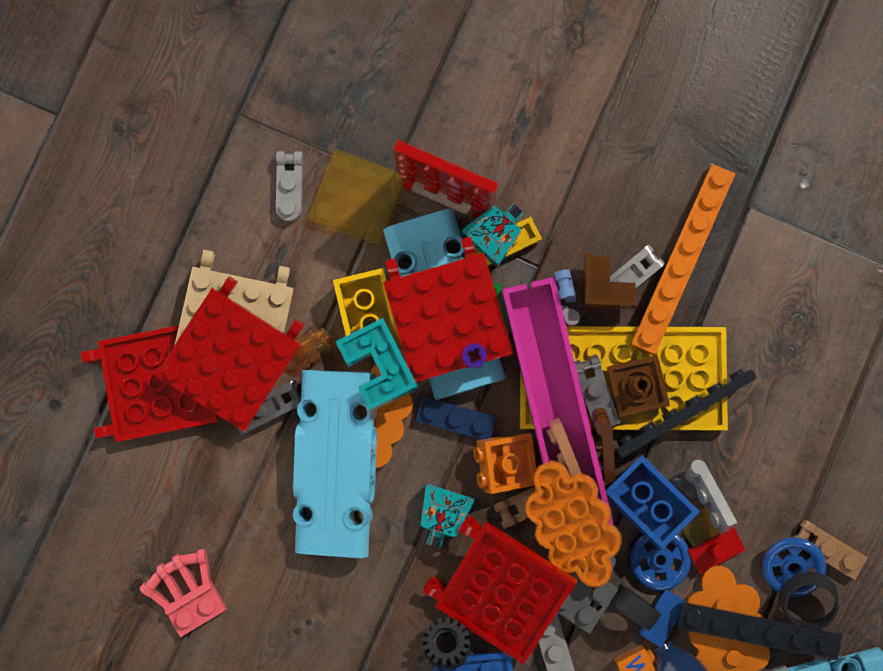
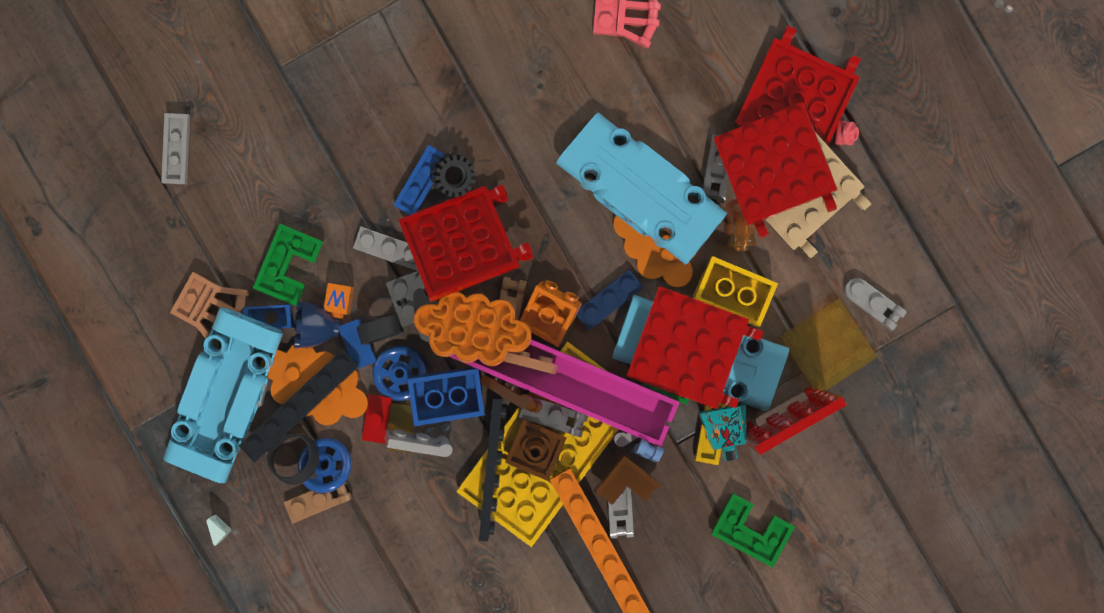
camera: 120 degrees right, 5 degrees up
(156, 317) = (846, 133): none -> coral plate
(395, 378) = (672, 277): teal plate -> none
(443, 513) = (547, 240): teal torso -> none
(471, 348) = (653, 347): dark purple bush -> none
(573, 126) = (764, 546): none -> green plate

